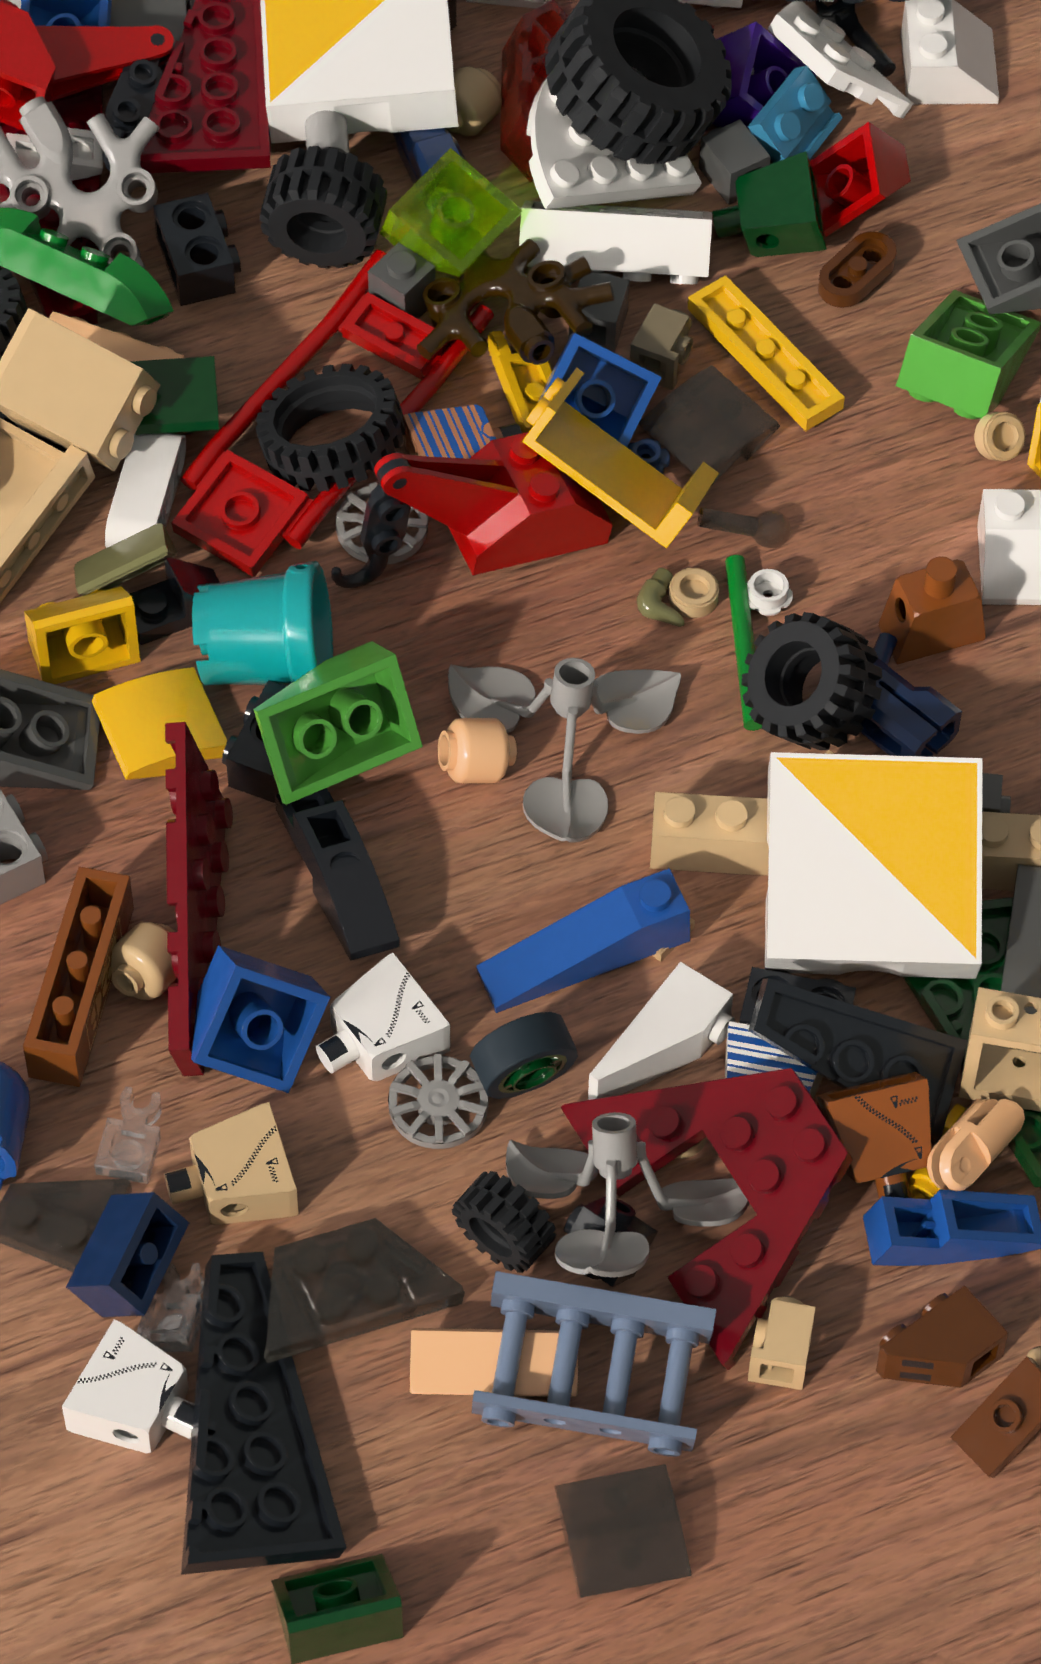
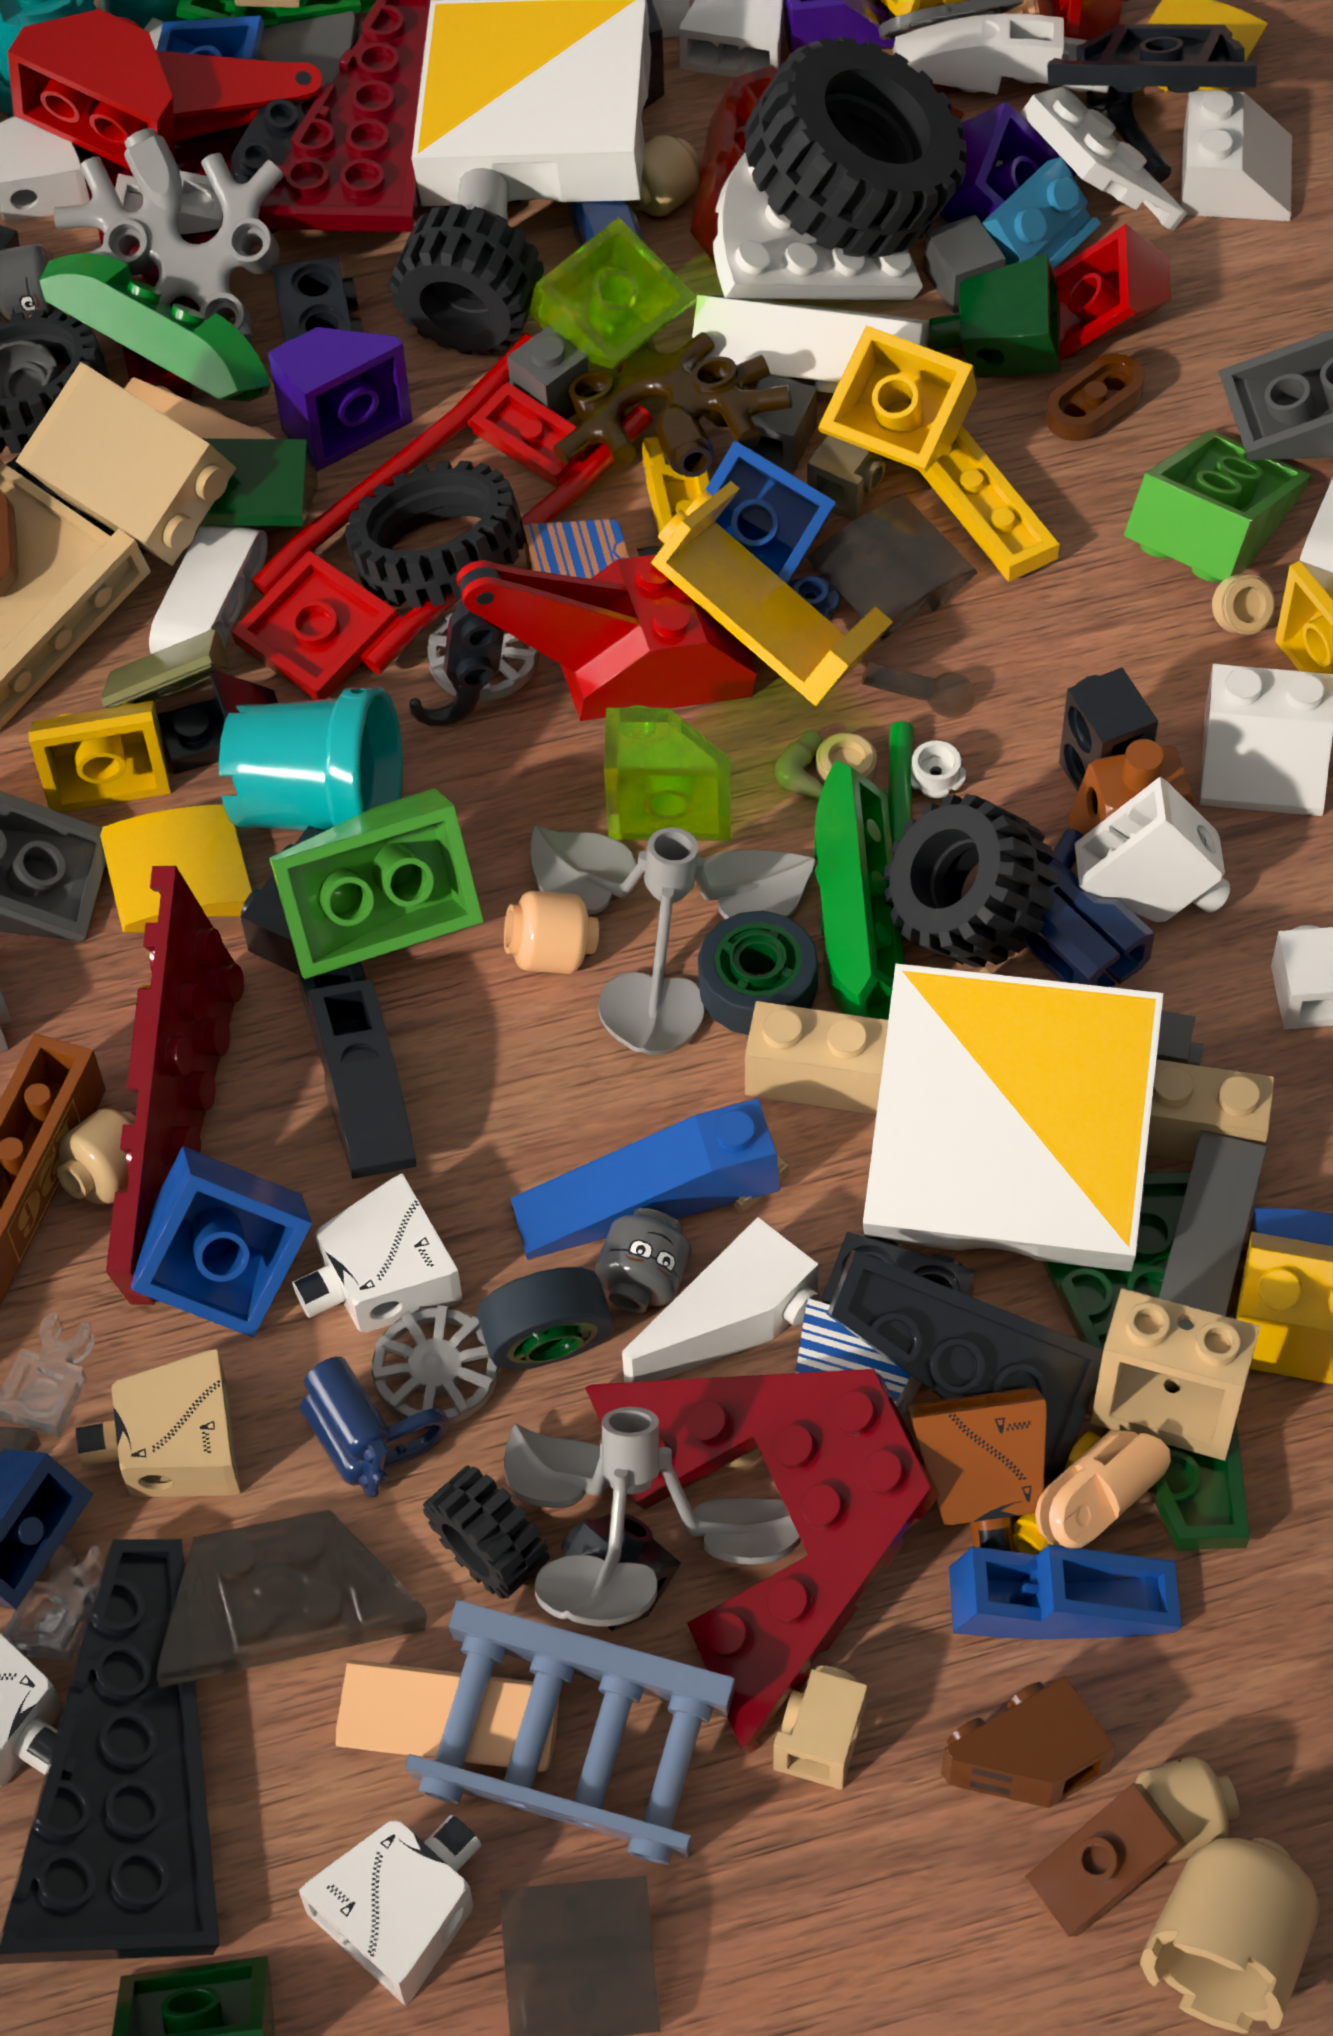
camera: 10 degrees right, 0 degrees up
(230, 310) = (340, 390): none -> dark purple slope
(386, 1155) = (354, 1429): none -> dark blue piece
(476, 1502) = (396, 1901): none -> white torso
(552, 616) = (663, 777): none -> clear neon green slope
(593, 1003) = (643, 1260): none -> dark grey head
(641, 746) = (752, 944): none -> wheel
(702, 287) = (900, 400): none -> yellow slope
(713, 666) = (852, 854): none -> green brick
(901, 543) = (1102, 721): none -> black brick
(955, 649) = (1154, 856): none -> white torso

